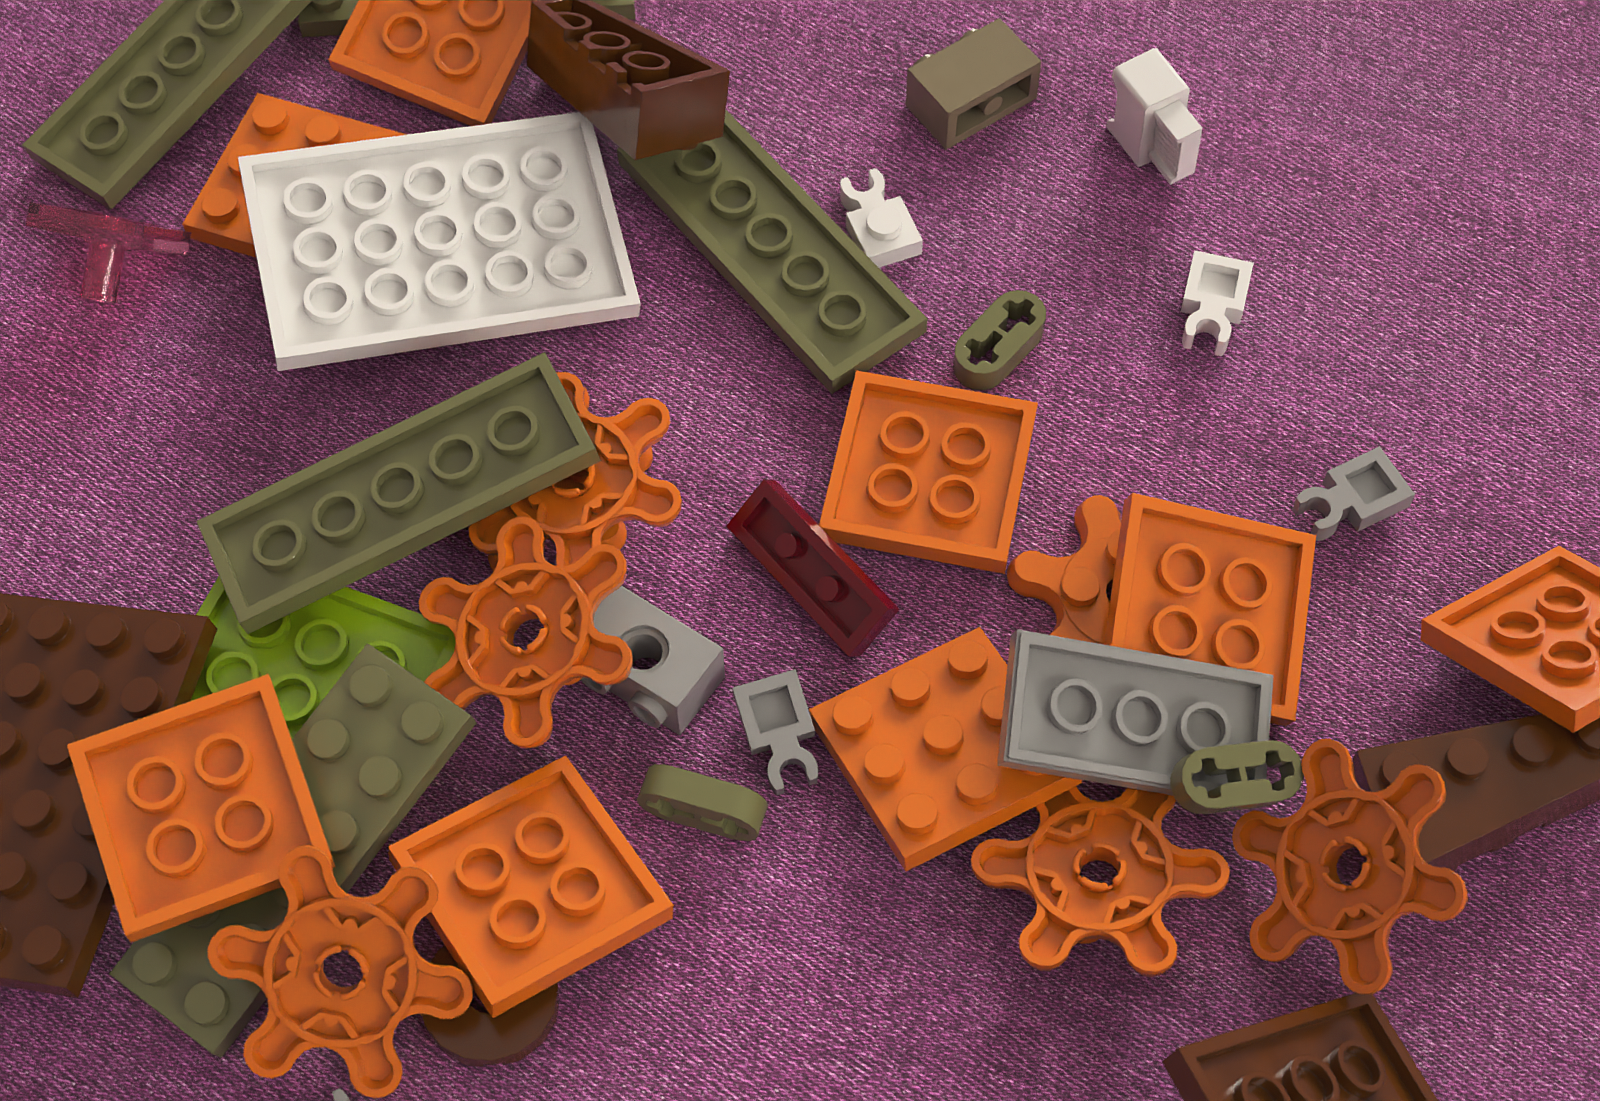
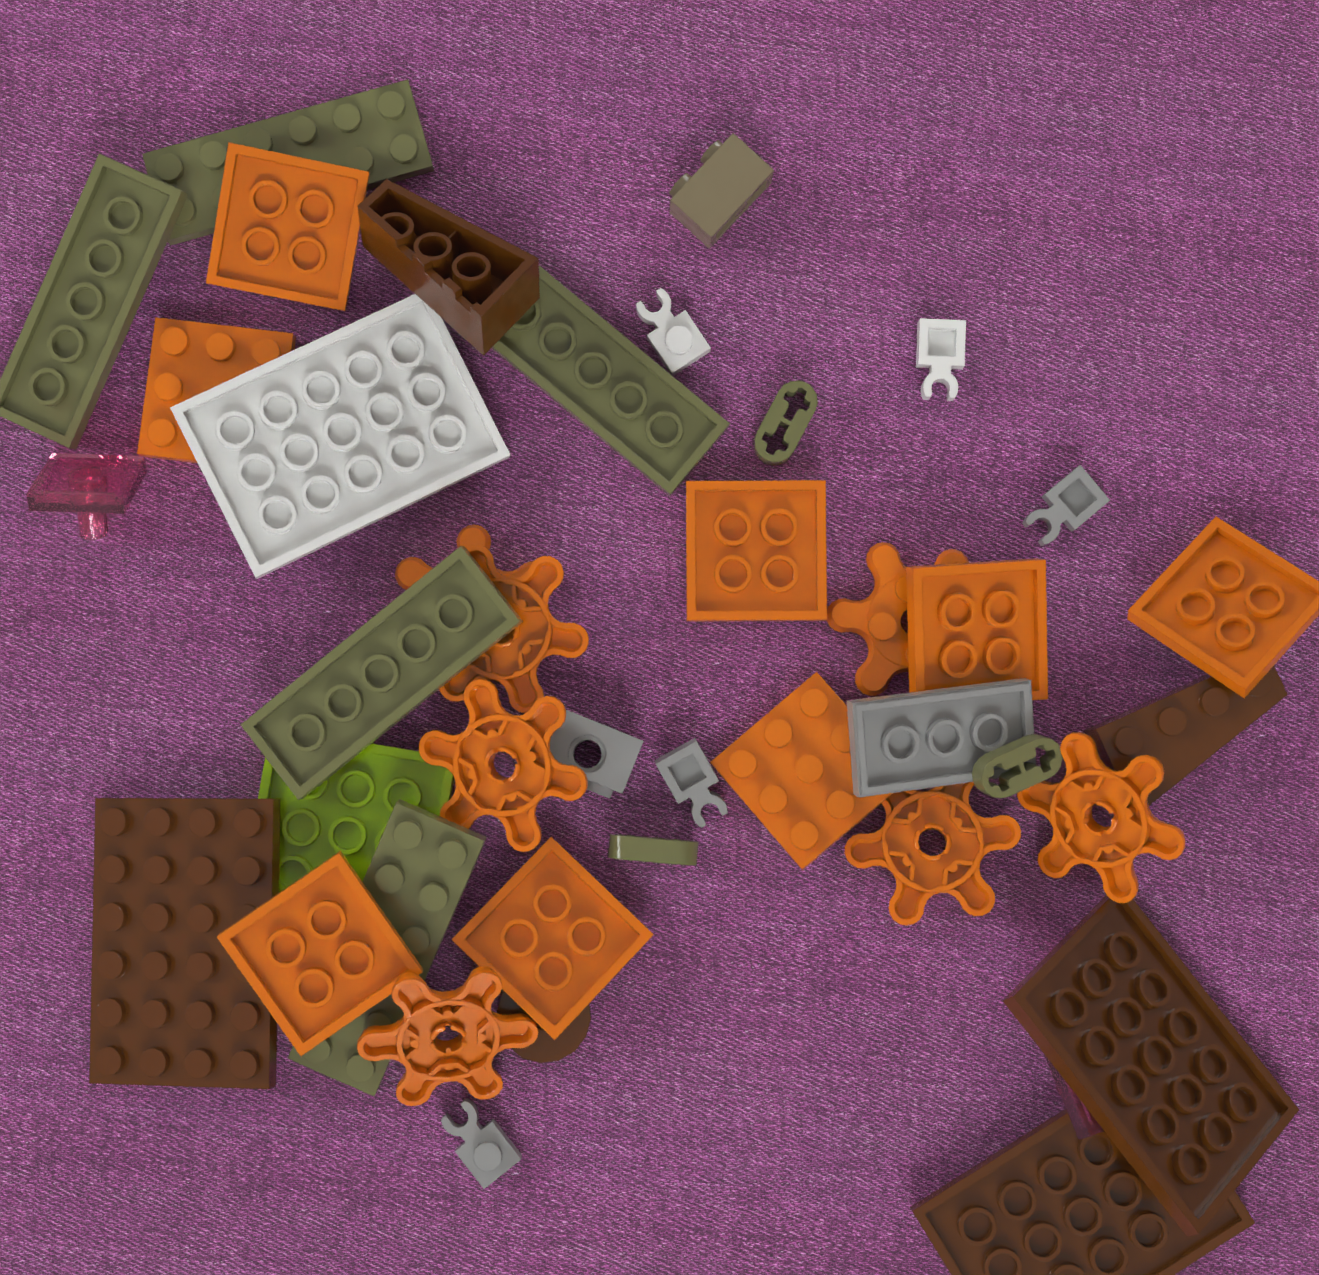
camera: 20 degrees left, 25 degrees up
(812, 568) = (688, 651): dark red plate -> none
(1154, 116) = (869, 202): white piece -> none

